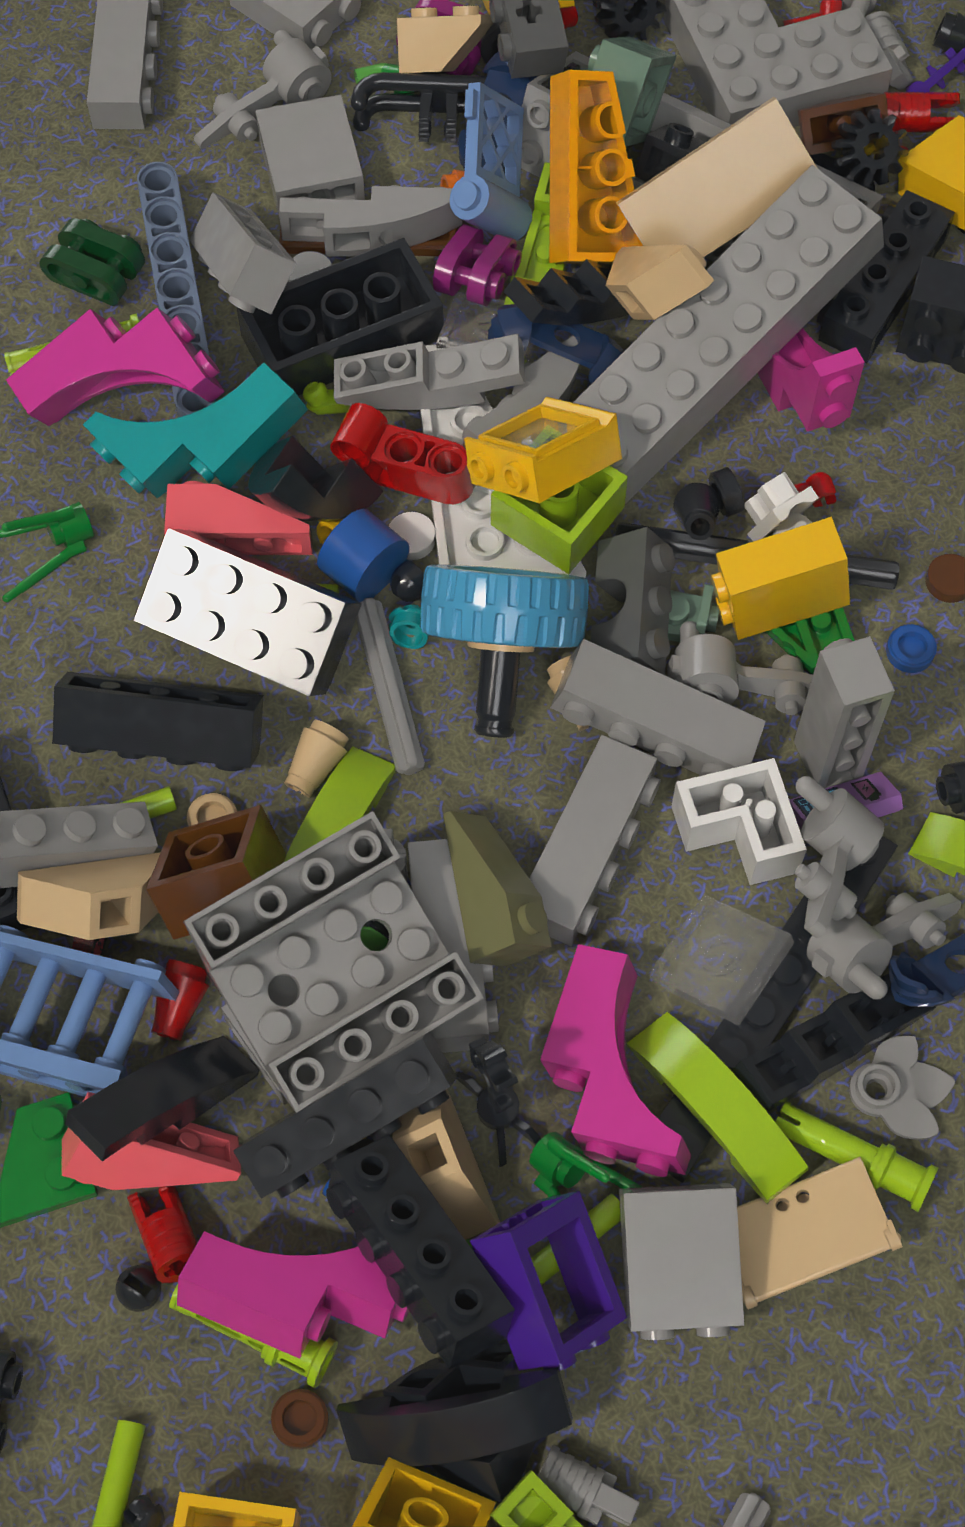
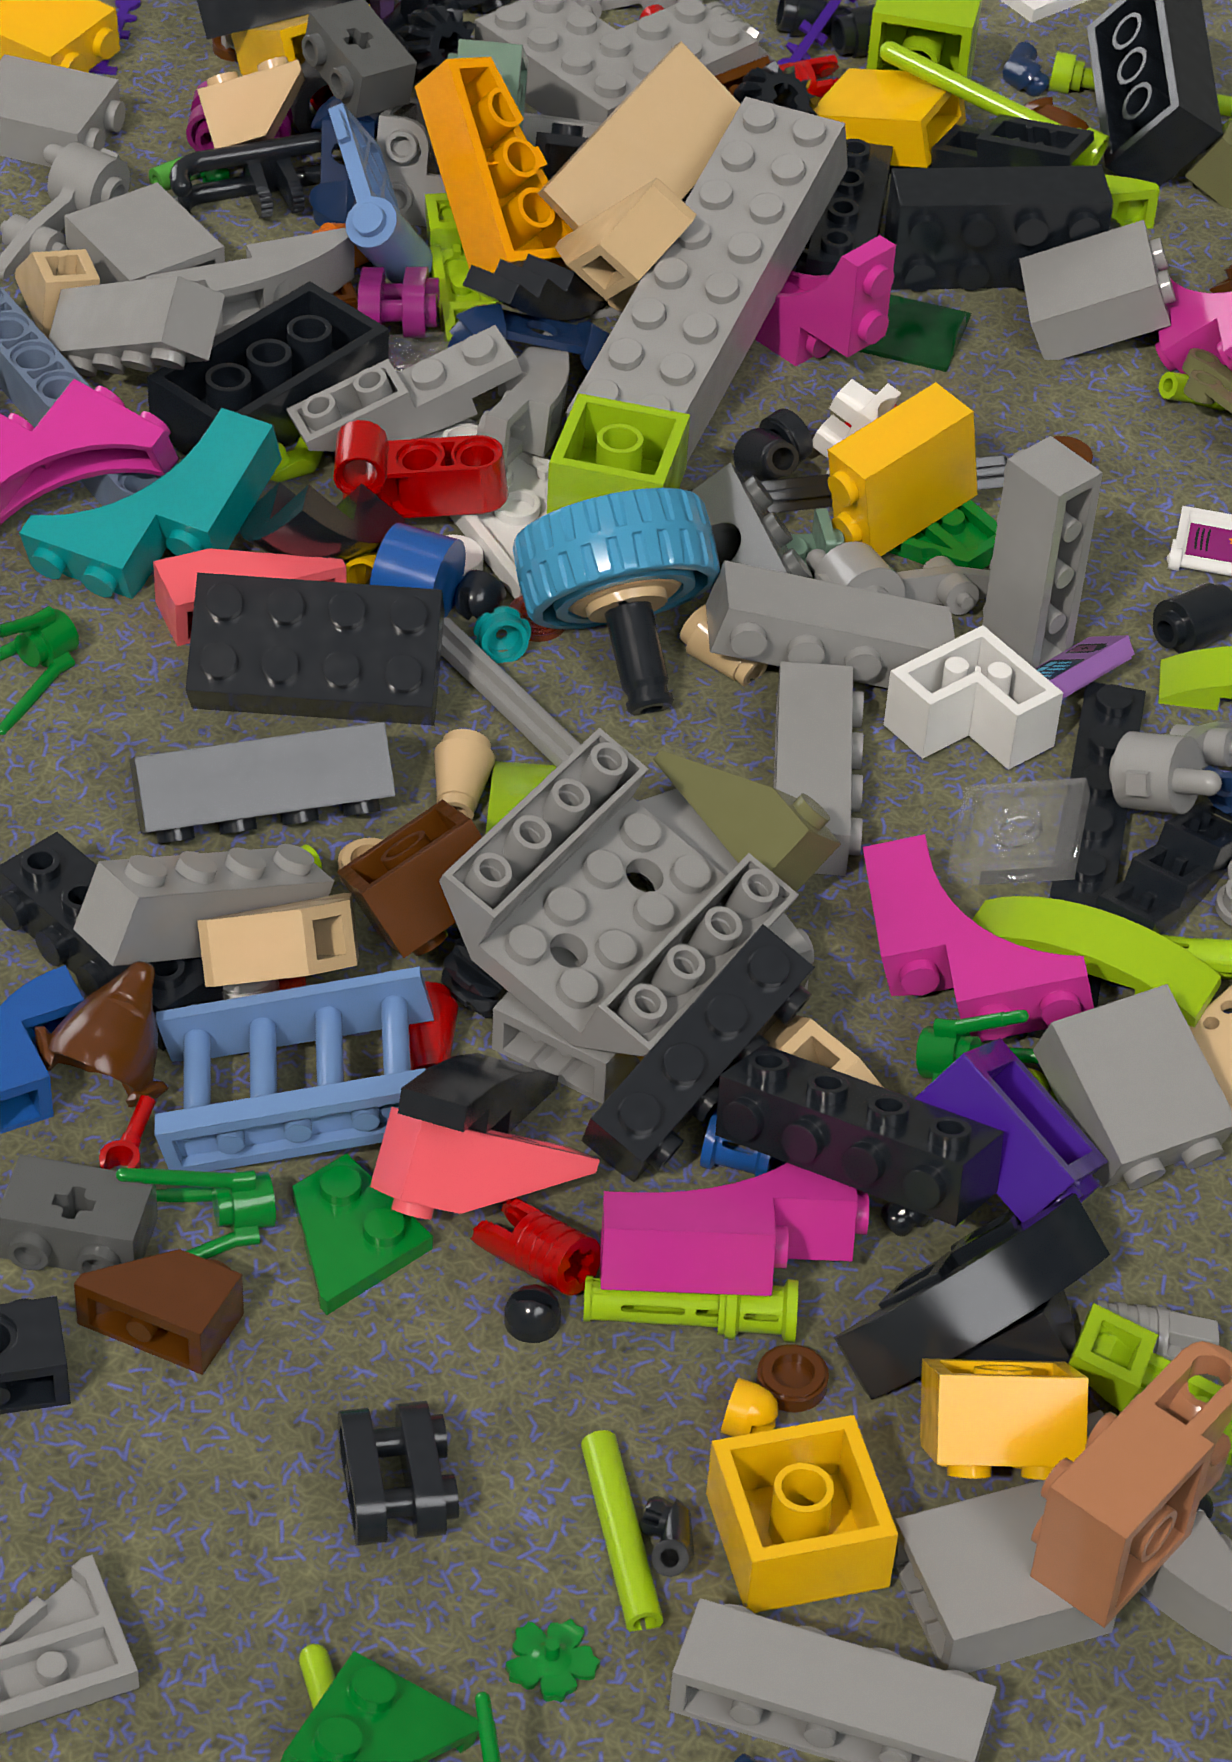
camera: 25 degrees left, 20 degrees down
(224, 174) = (45, 274): none -> tan slope
(249, 1442) = (749, 1410): none -> yellow hinge
(497, 1103) = (850, 1024): black piece -> none
(544, 450) = (588, 405): yellow window -> none
(845, 837) = (1092, 673): light grey piece -> none
(894, 402) = (920, 333): none -> dark green piece

